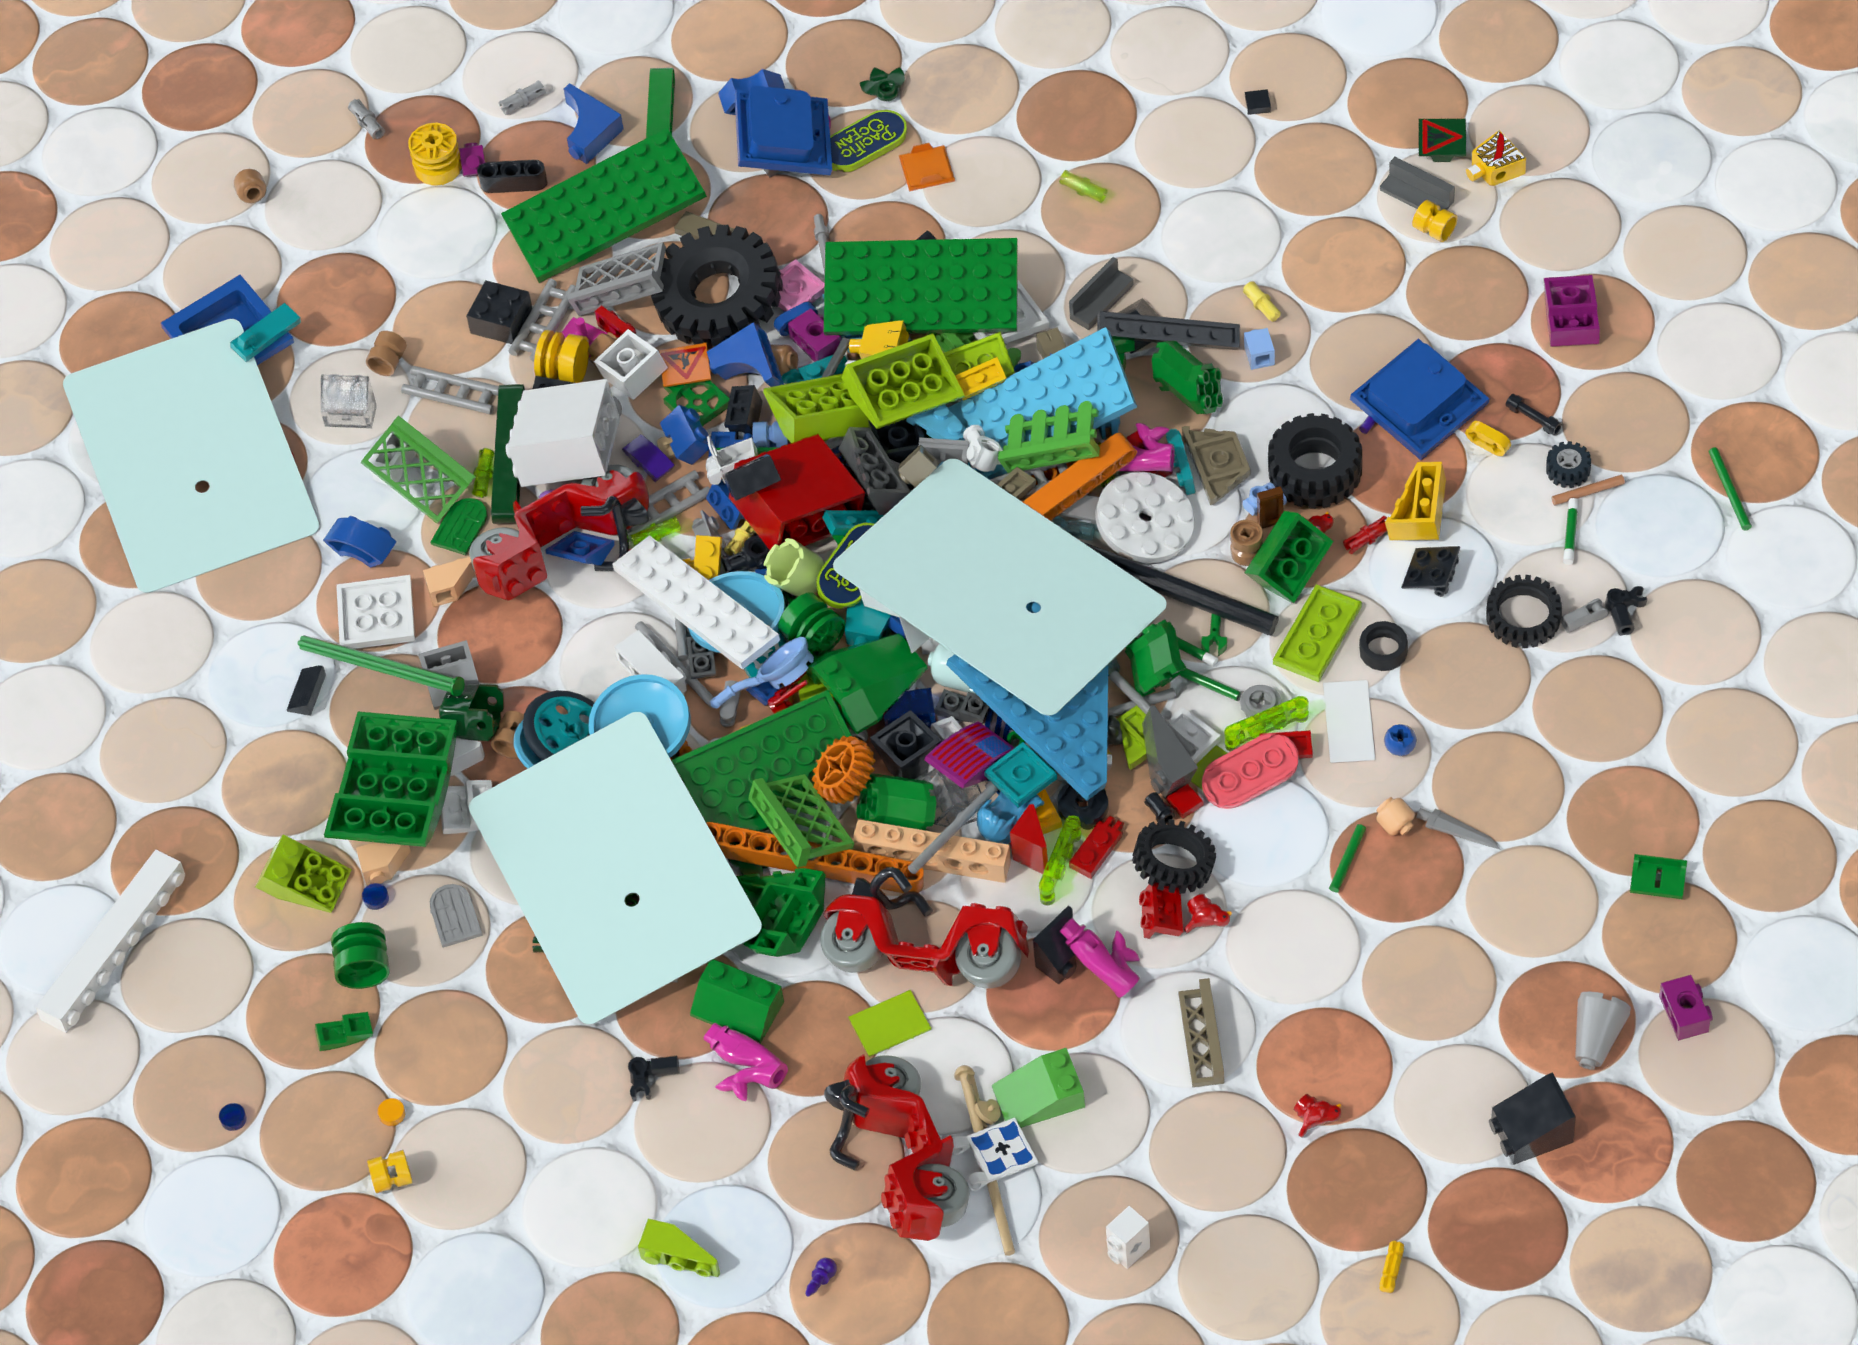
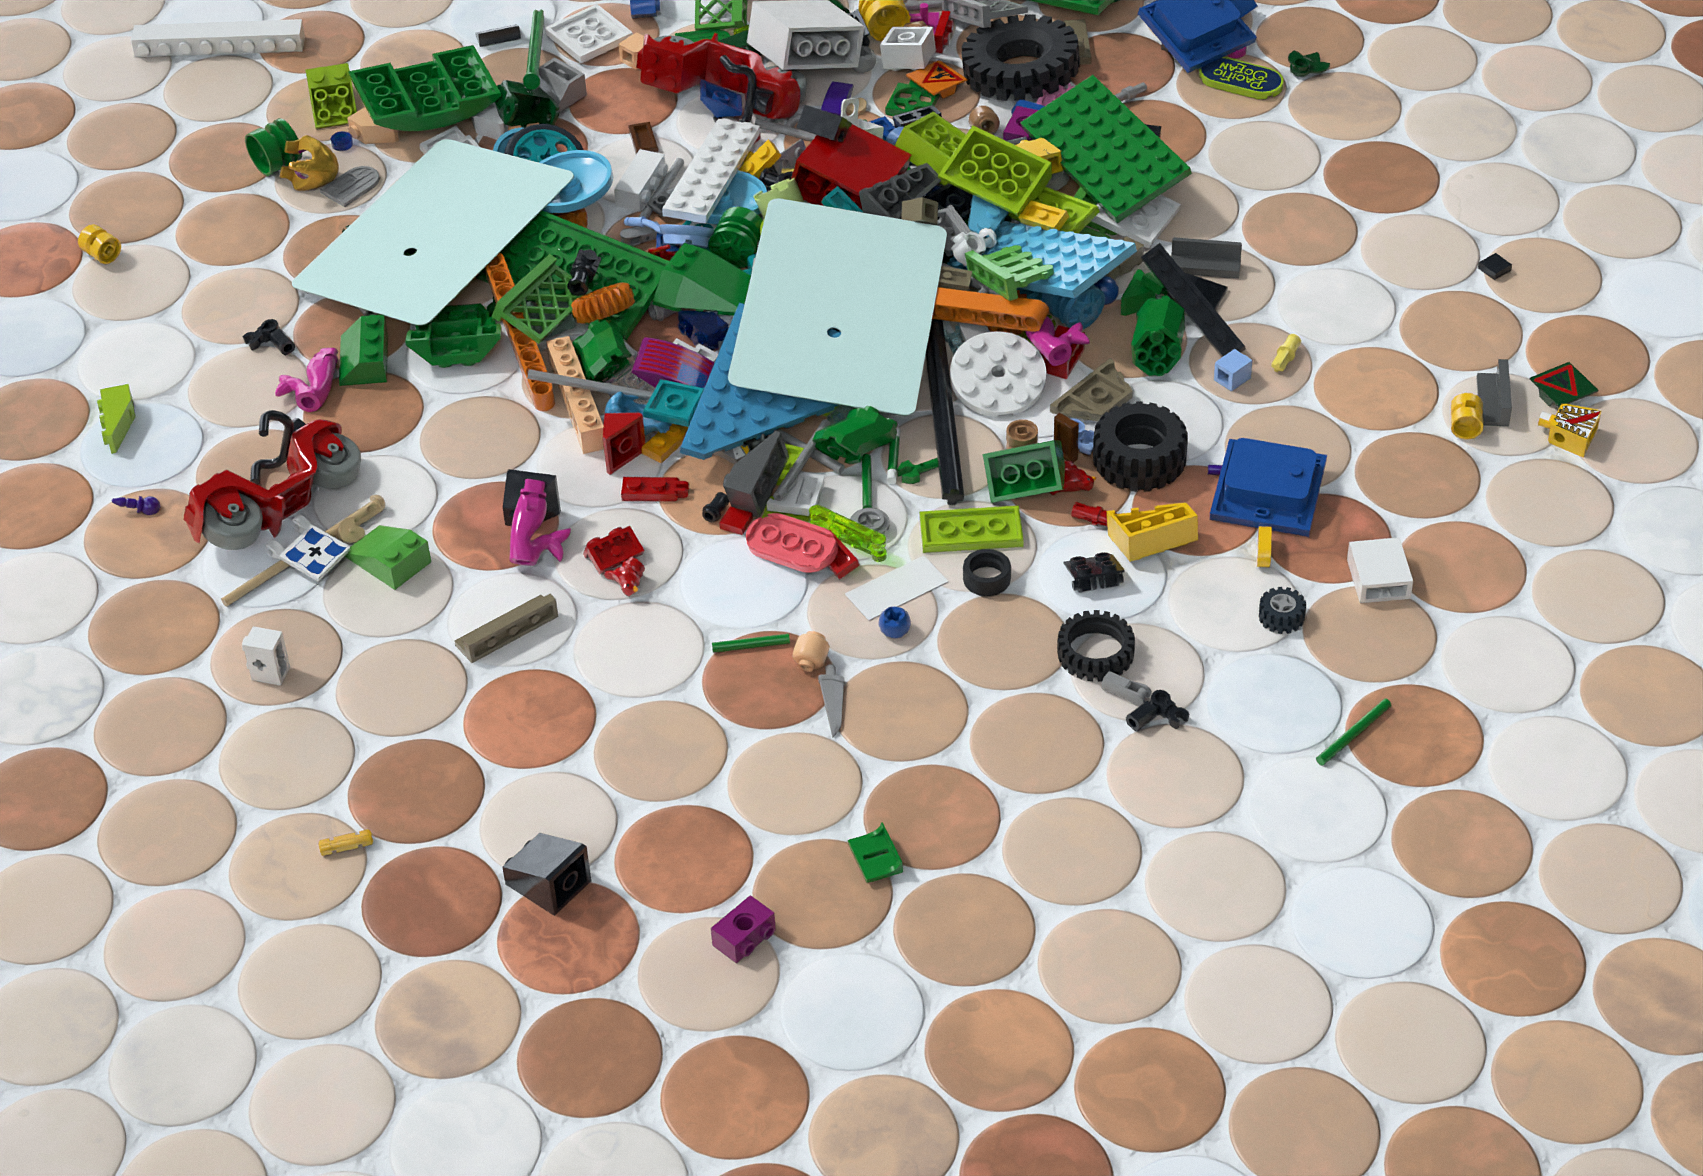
camera: 55 degrees right, 10 degrees down
(232, 1117) = (108, 157): clear blue tile -> none
(348, 1031) = (212, 175): green slope -> none
(391, 1112) = (157, 227): light orange tile -> none
(421, 926) = (320, 169): none -> pearl gold piece
(580, 640) = (643, 137): none -> reddish brown tile
(657, 531) = (771, 131): clear neon green pin -> none
(687, 434) = (872, 101): blue brick -> none
(746, 353) = (965, 98): blue arch -> none
(786, 763) = (583, 271): none -> black connector
(889, 1023) = (403, 446): lime window -> none
(905, 746) = (660, 326): black slope -> none
(926, 167) = (1249, 120): orange piece -> none
(980, 944) = (479, 439): piece -> none
(1056, 866) = (617, 467): clear neon green plate -> none
(1083, 186) = (1307, 206): clear neon green pin -> none
(1088, 815) = (676, 465): black plate -> none
(1168, 875) = (656, 549): black tyre -> none
(1180, 460) = (1074, 373): teal hinge -> none
(1315, 1112) = (469, 725): red animal -> none
(1550, 425) = (1320, 554): black bar -> none
(1569, 375) = (1379, 570): none -> white brick
(1570, 531) = (1213, 643): green bar -> none
(1571, 310) = (1454, 543): magenta slope -> none
(1588, 489) = (1268, 636): nougat bar -> none
(1598, 1027) = (674, 873): light grey cone -> none

